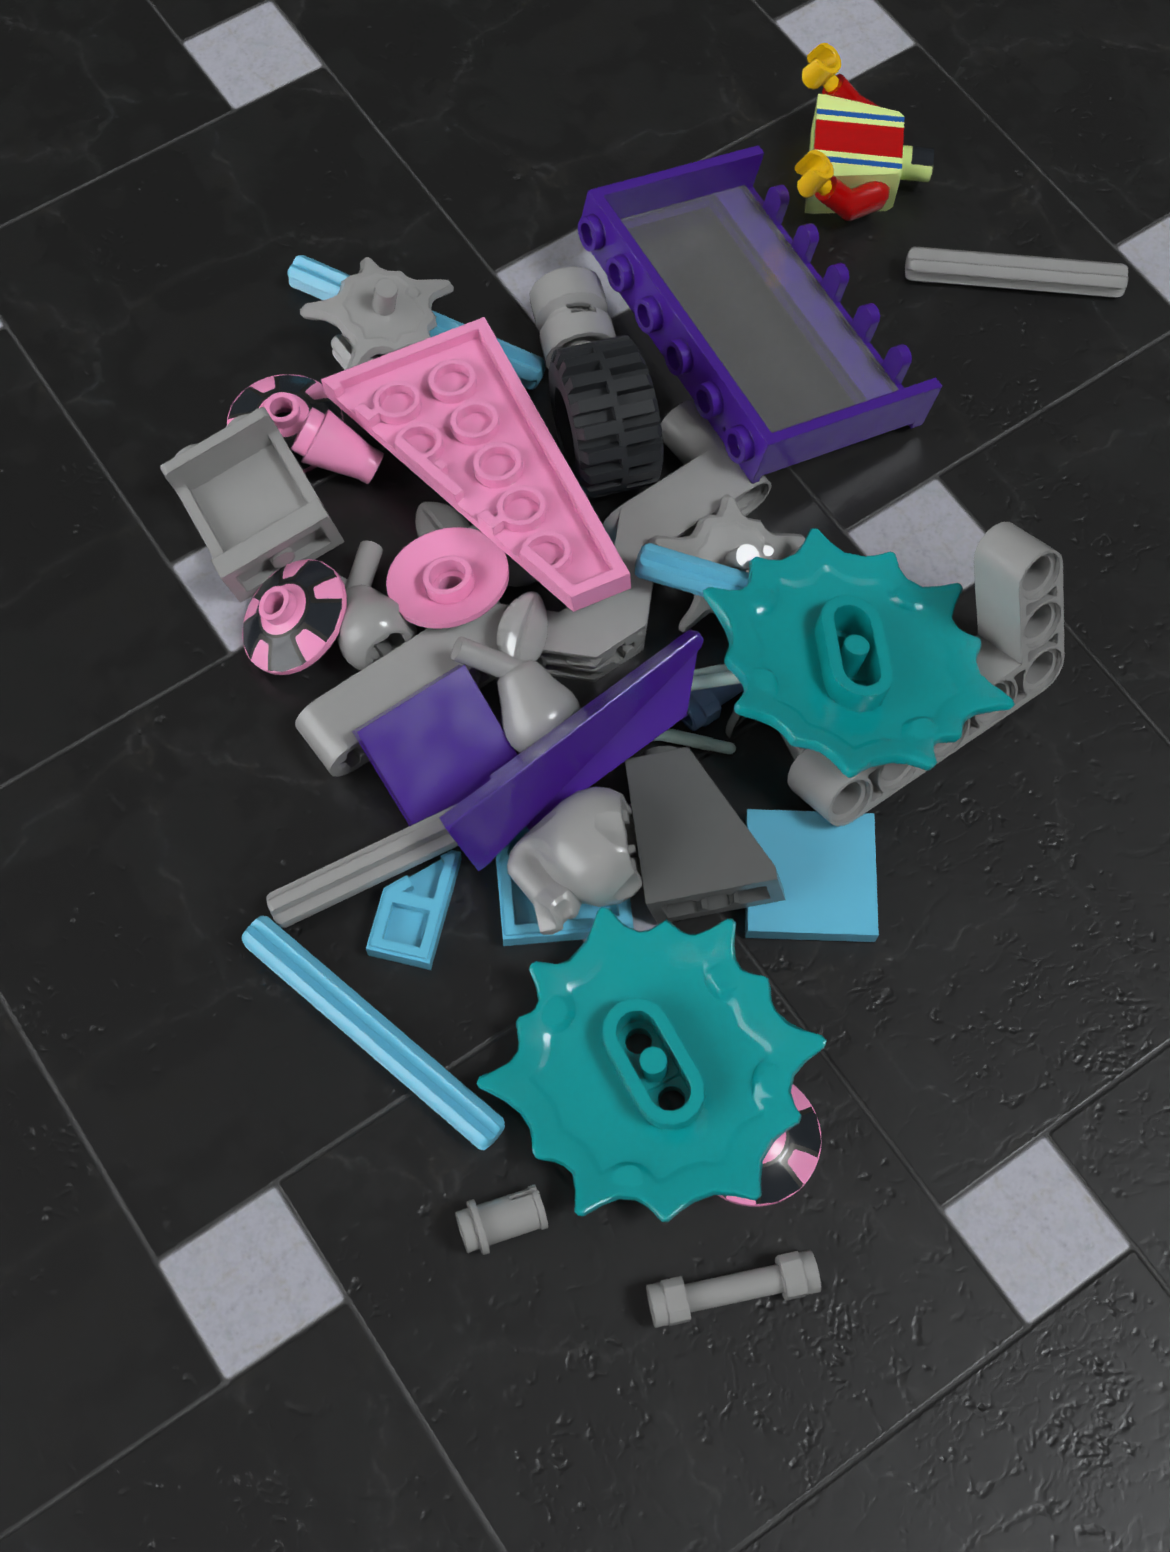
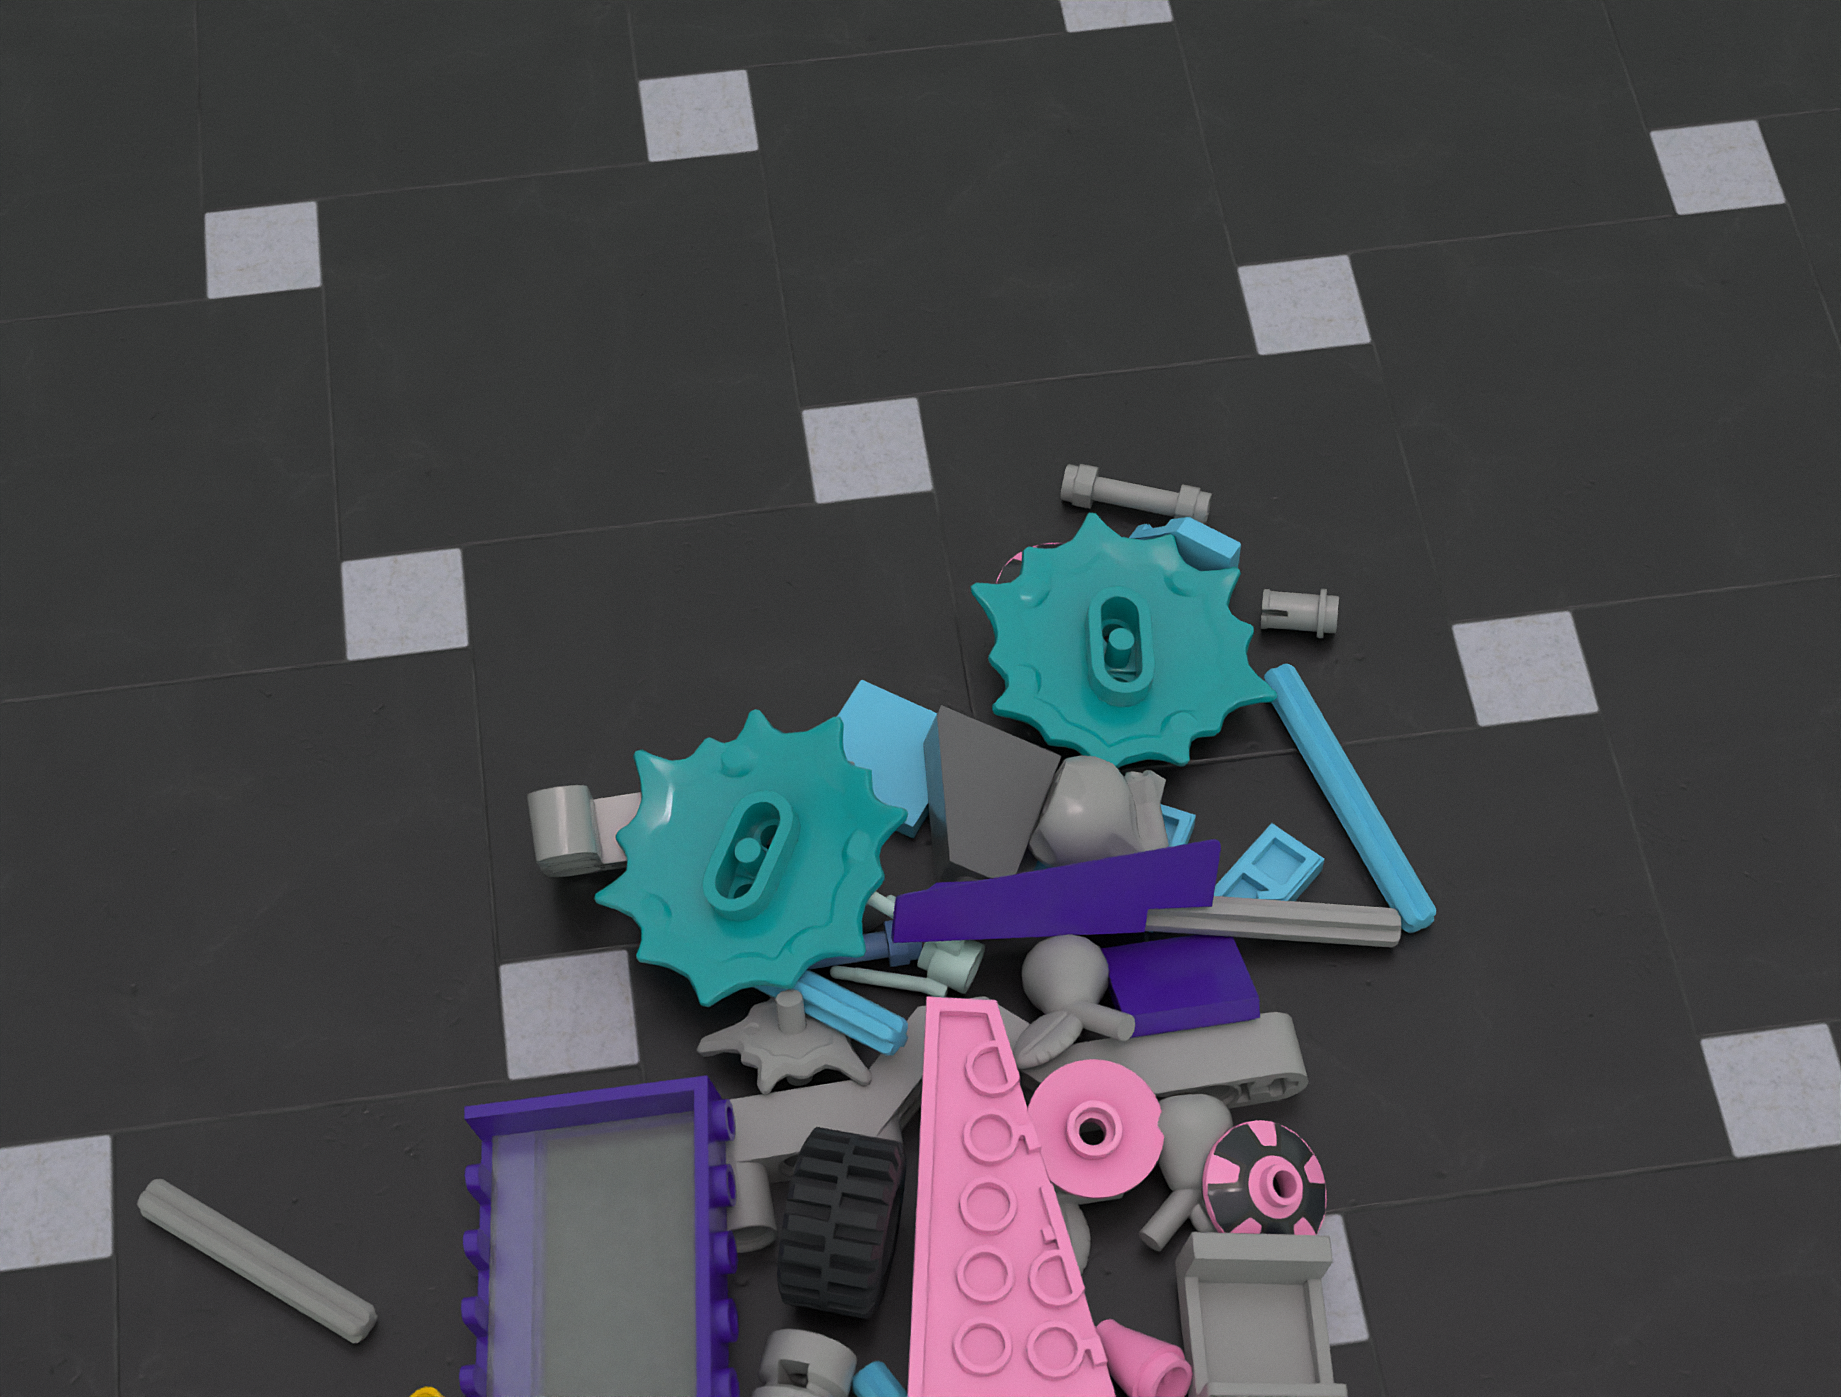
camera: 150 degrees left, 10 degrees down
(649, 1239) = (1196, 543): none -> medium azure tile

